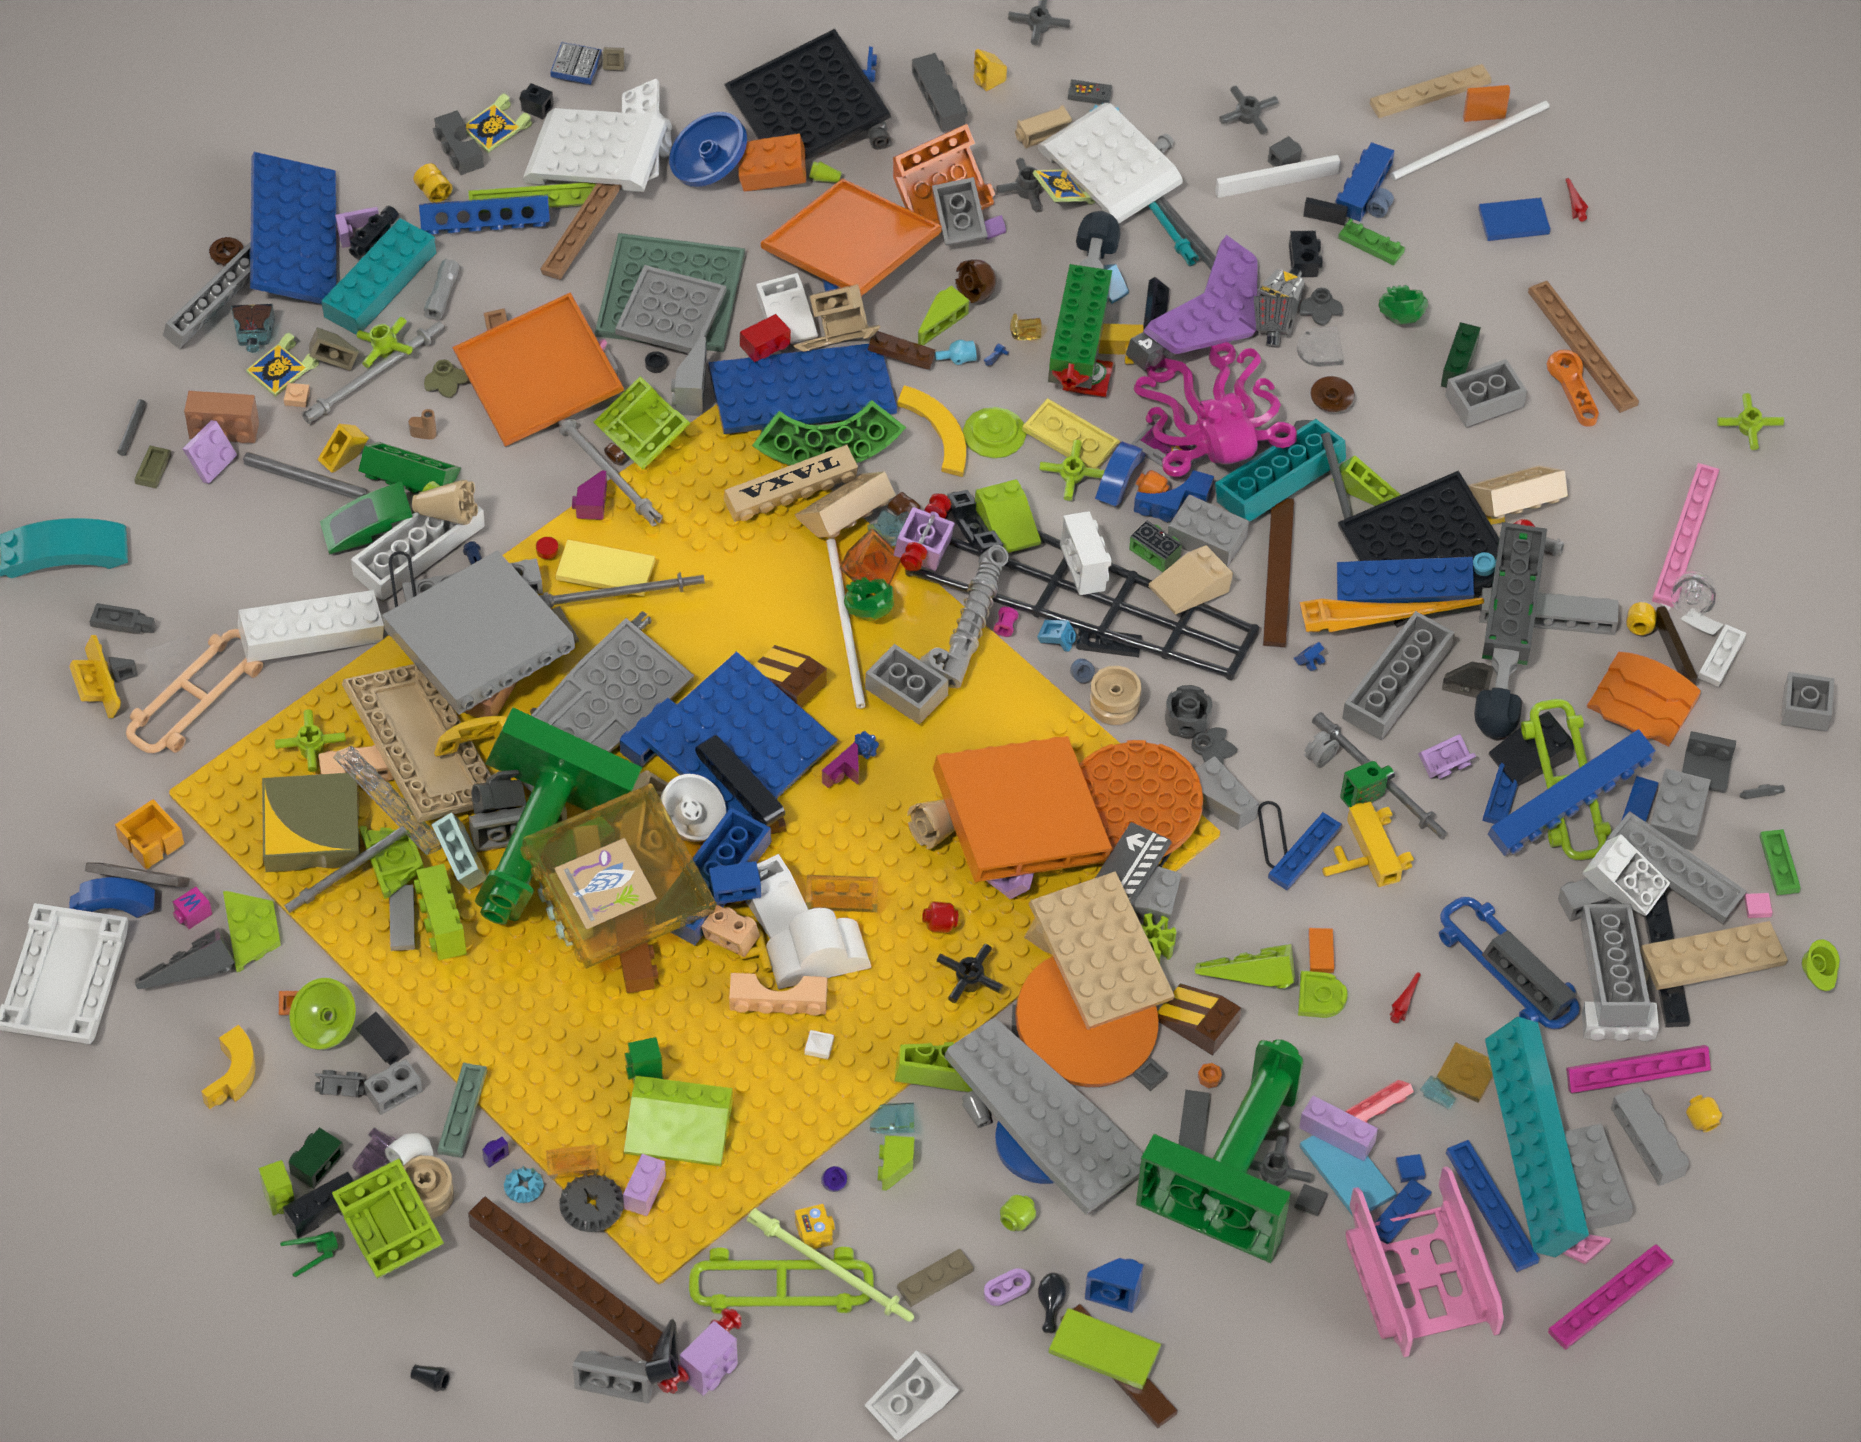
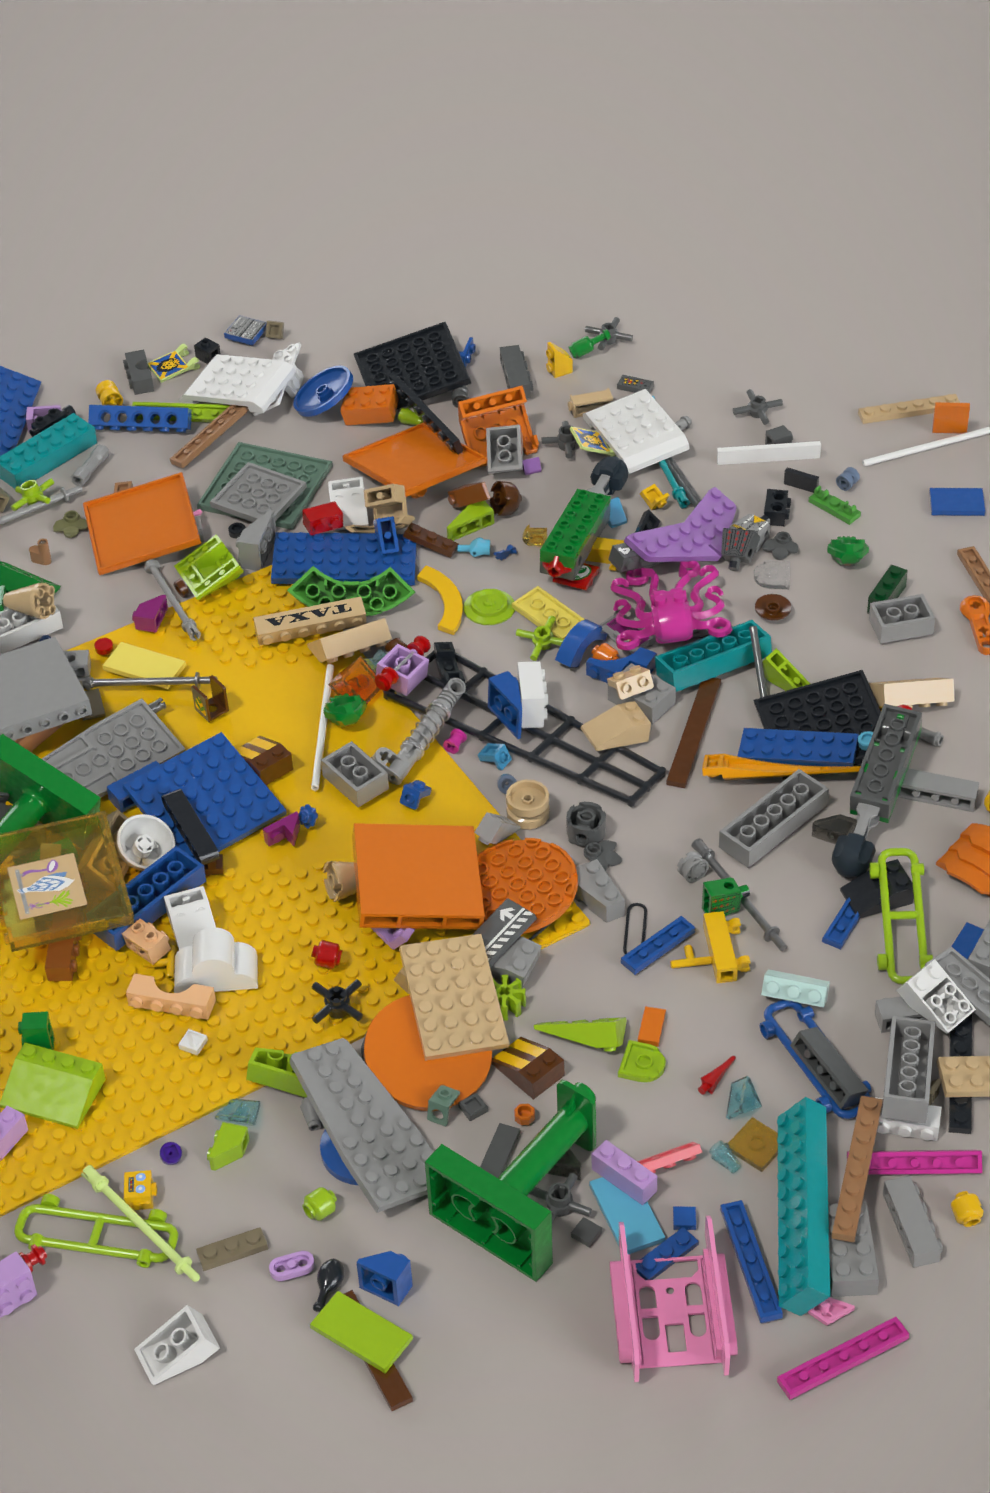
camera: 15 degrees right, 10 degrees down
(712, 601) = (218, 699): none -> reddish brown piece
(735, 882) = (156, 901): blue brick -> none
(842, 893) = (250, 924): clear yellow brick -> none
(849, 352) = (386, 535): none -> blue slope
(850, 171) = (426, 414): none -> black plate
(933, 281) = (468, 494): none -> dark orange slope
(980, 698) = (413, 793): none -> blue bracket
(1007, 512) = (477, 661): lime slope -> none
(1016, 40) = (586, 344): none -> green piece
(1061, 568) = (505, 701): none -> blue slope
(1090, 734) = (495, 828): none -> light grey slope
(1106, 645) = (534, 768): black plate -> none
(1118, 1074) = (442, 1101): none -> sand green bracket
(1155, 256) = (654, 497): none -> yellow bracket
(1155, 546) = (593, 698): brick -> none
(1198, 522) = (631, 682): none -> tan bracket
(1309, 655) = (702, 794): blue tile -> none
(1365, 179) = (847, 454): blue brick -> none
(1439, 1021) = (742, 1098): none -> clear light blue slope
(1445, 756) = (800, 886): lavender bracket -> none
(1469, 883) = (795, 988): none -> light aqua brick
(1571, 792) = (901, 924): blue brick -> none
(1585, 1087) = (857, 1169): none -> medium nougat plate

